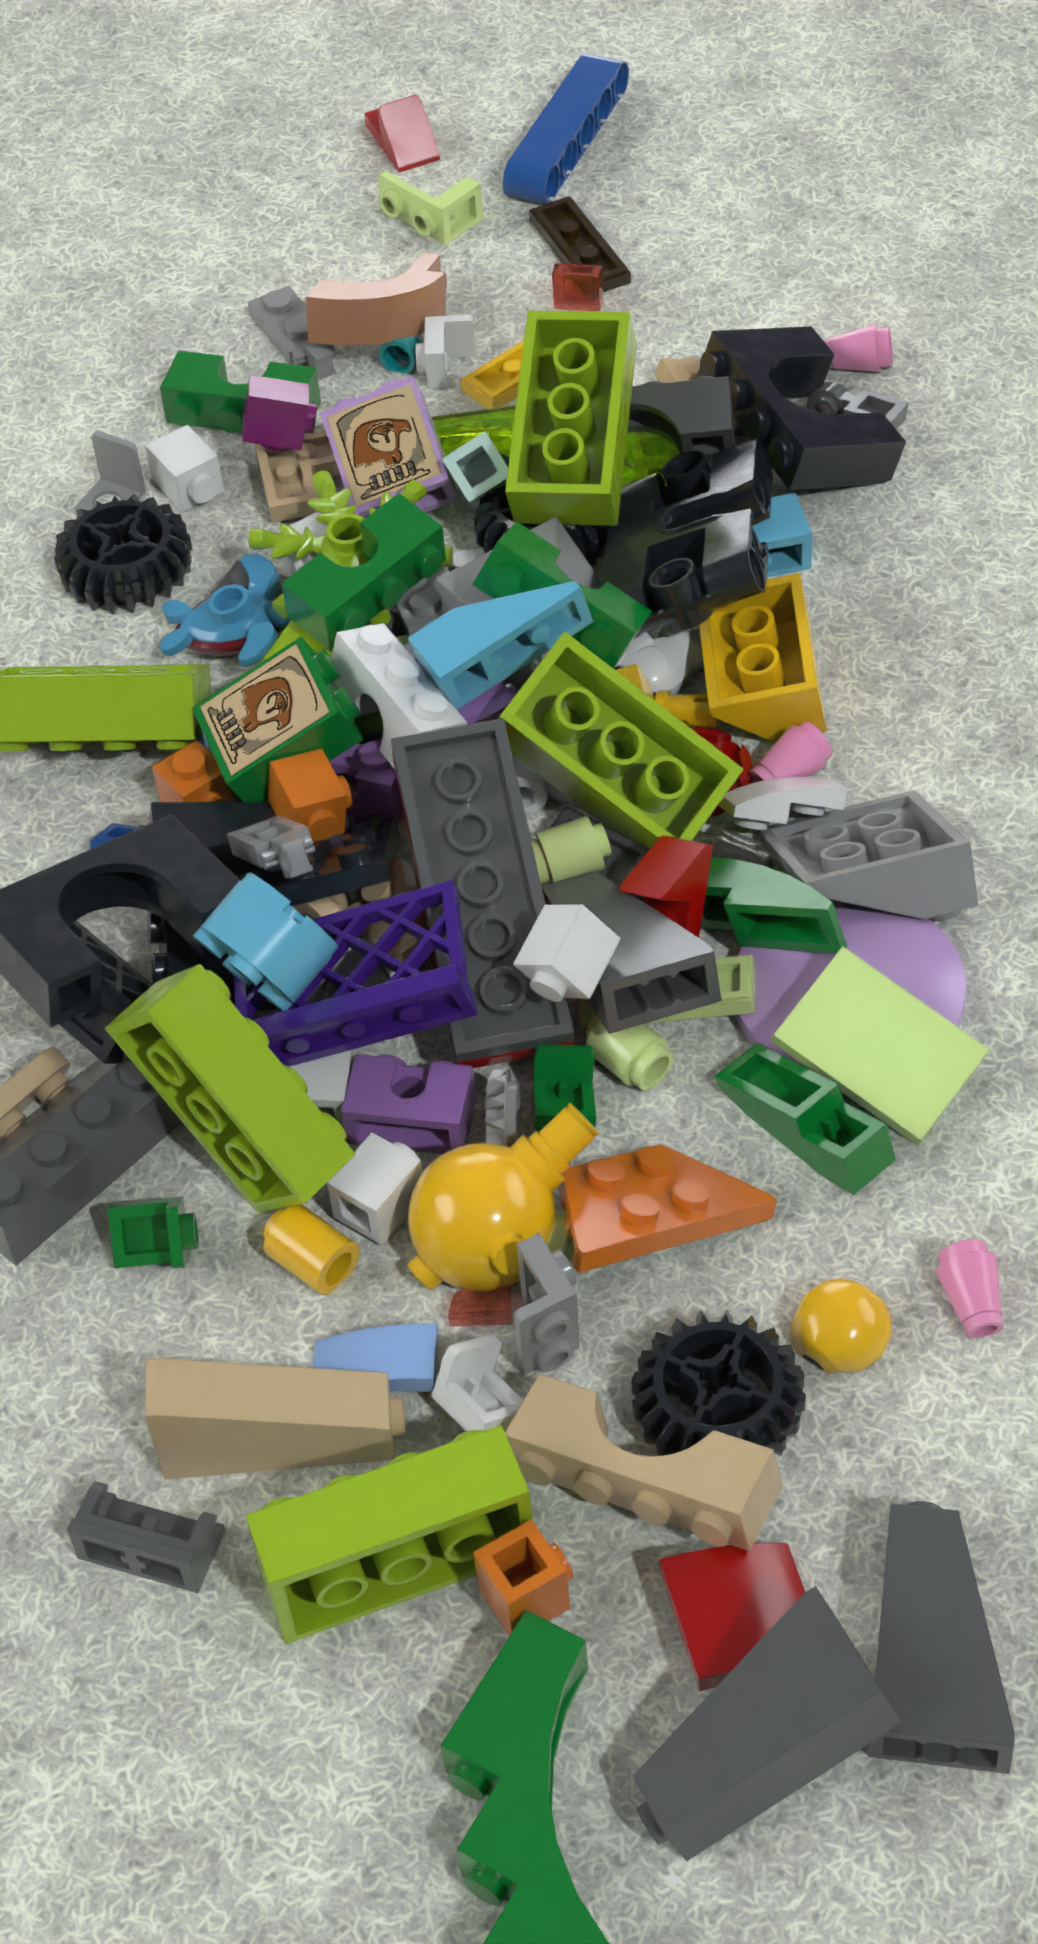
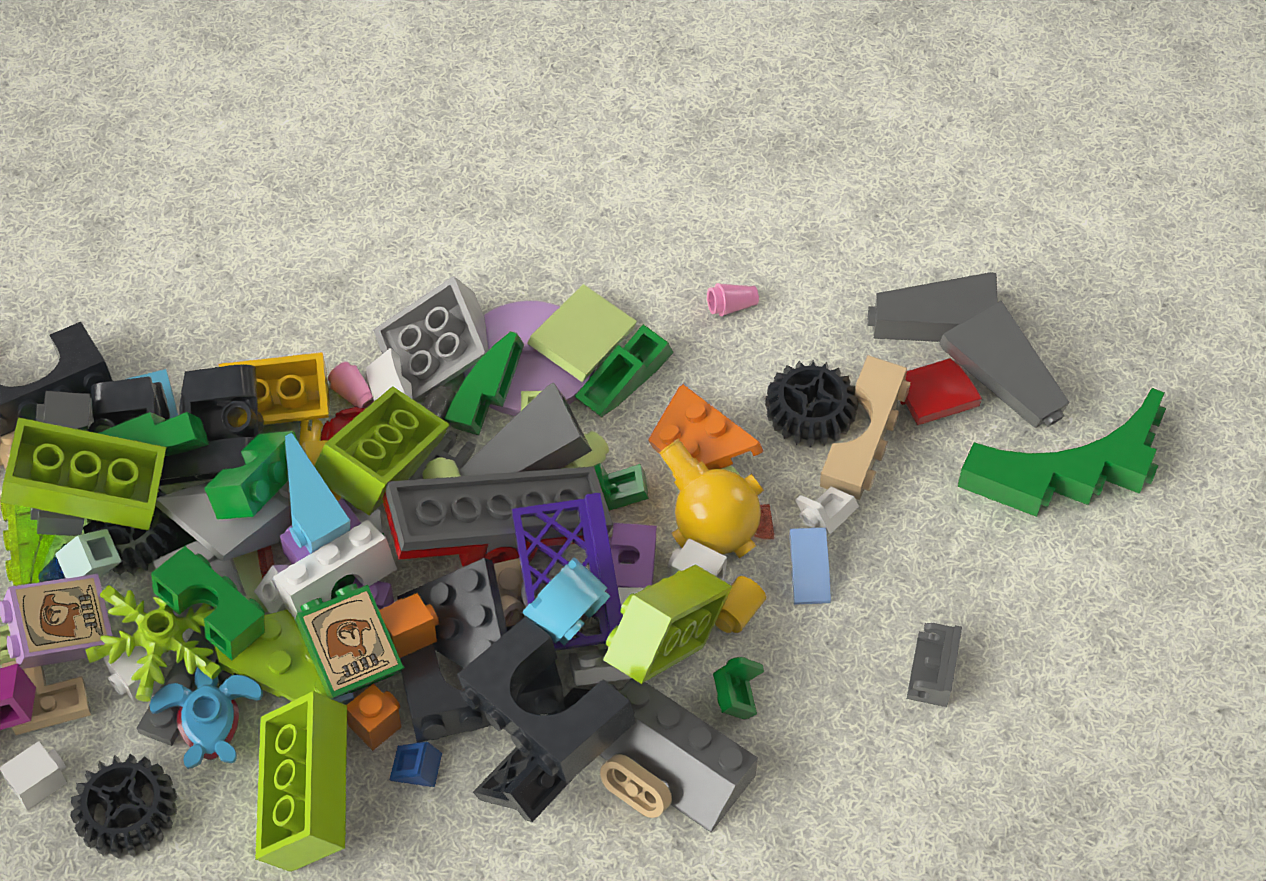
camera: 100 degrees left, 5 degrees up
(117, 467) = (30, 822): light grey bracket -> none
(266, 1417) = (862, 608): tan slope -> none
(274, 845) = (466, 625): light grey hinge -> none
(387, 1532) = (929, 532): lime brick -> none
(502, 1108) = (633, 508): light grey gear -> none
(523, 1575) = (941, 475): orange brick -> none
(549, 1320) = (782, 468): light grey bracket -> none
(566, 952) = (561, 453): white brick -> none
(646, 496) = (176, 434): none -> green slope
(673, 880) = (473, 423): red slope -> none
(837, 400) = (32, 350): dark grey plate -> none
(841, 1326) = (759, 356): yellow hair -> none

